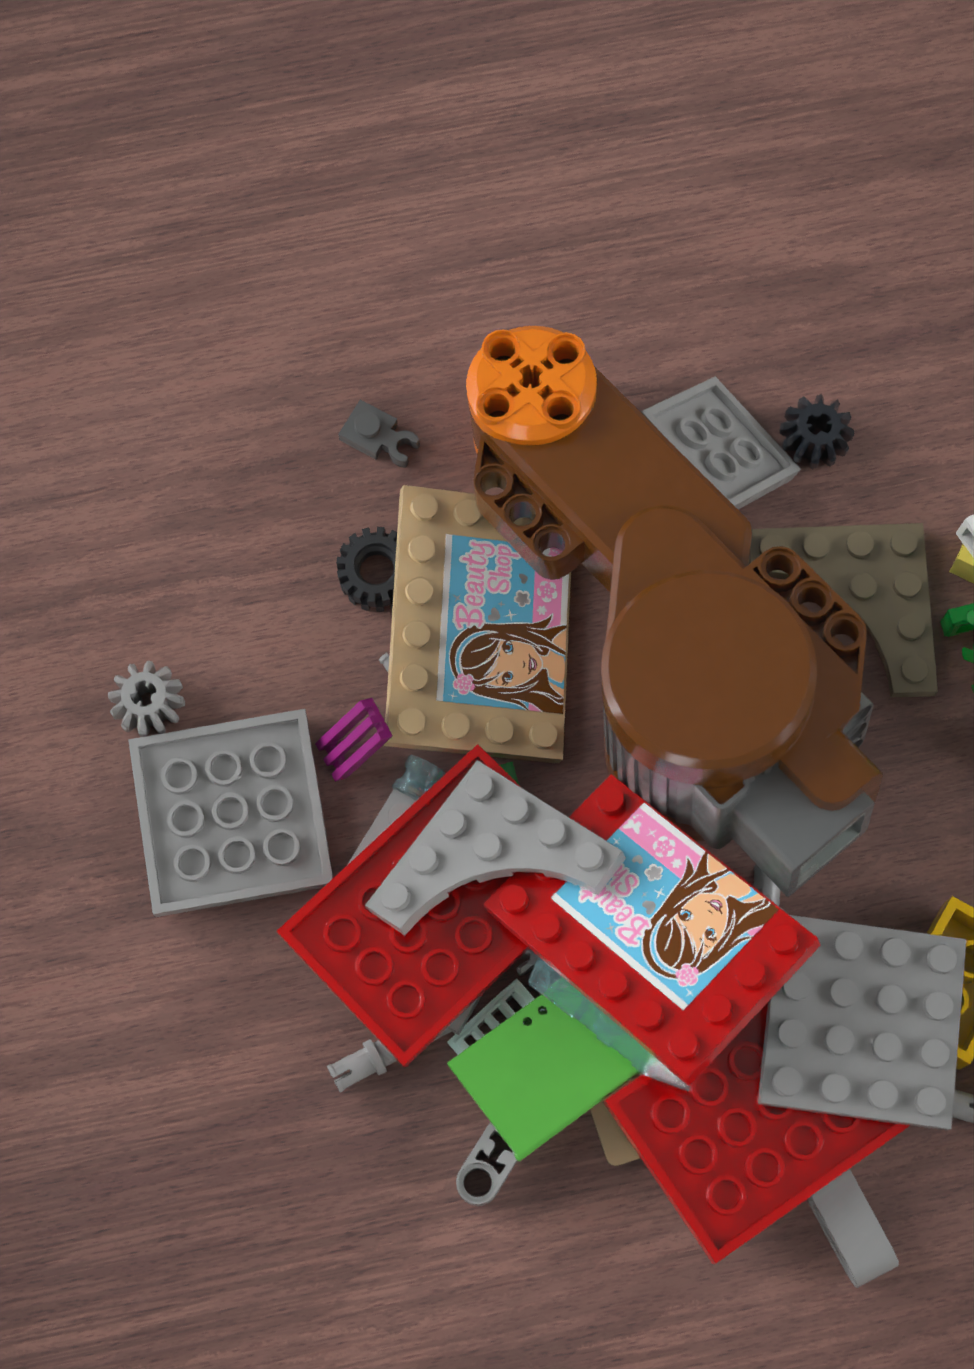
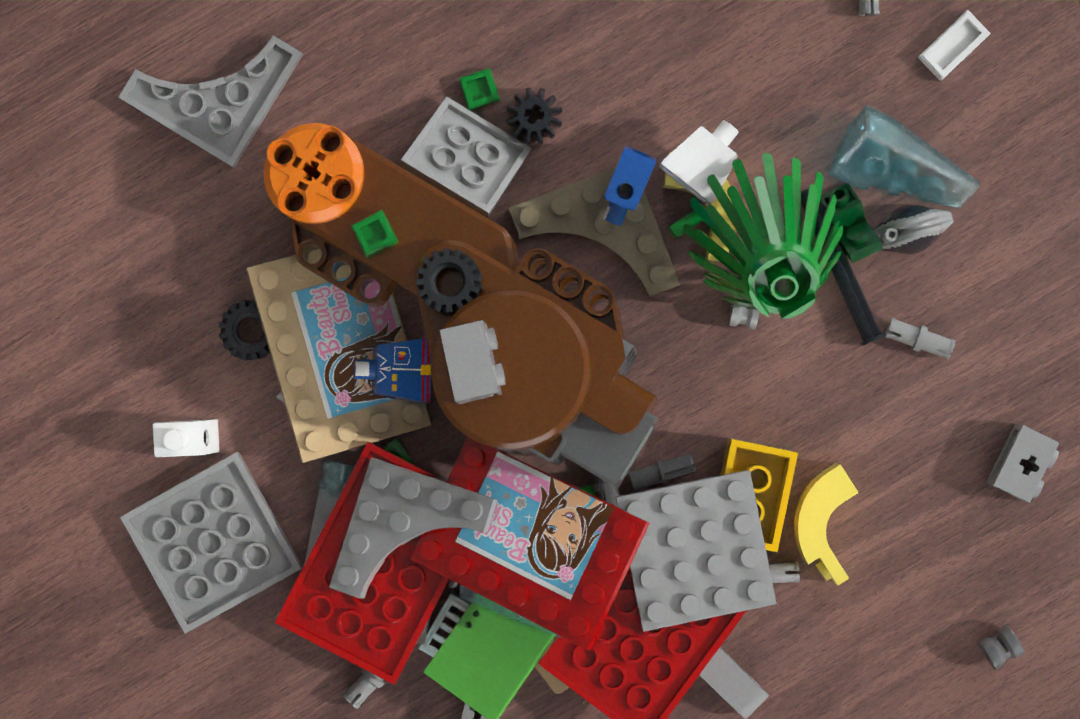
camera: 15 degrees left, 15 degrees up
(163, 697) = (109, 482): light grey gear -> none
(246, 666) = (185, 438): none -> white torso
(335, 752) = (271, 474): magenta tile -> none
(373, 431) = (210, 224): dark grey plate -> none
(434, 308) = (219, 112): none -> light grey plate
(547, 672) = (398, 370): none -> blue torso
(583, 474) = (374, 234): none -> green tile
(656, 523) = (434, 266): none -> black tyre
(664, 635) = (472, 362): none -> light grey hinge
(757, 383) = (479, 89): none -> green tile
(849, 914) = (662, 472): none -> dark grey axle
(923, 522) = (635, 170): none -> blue torso

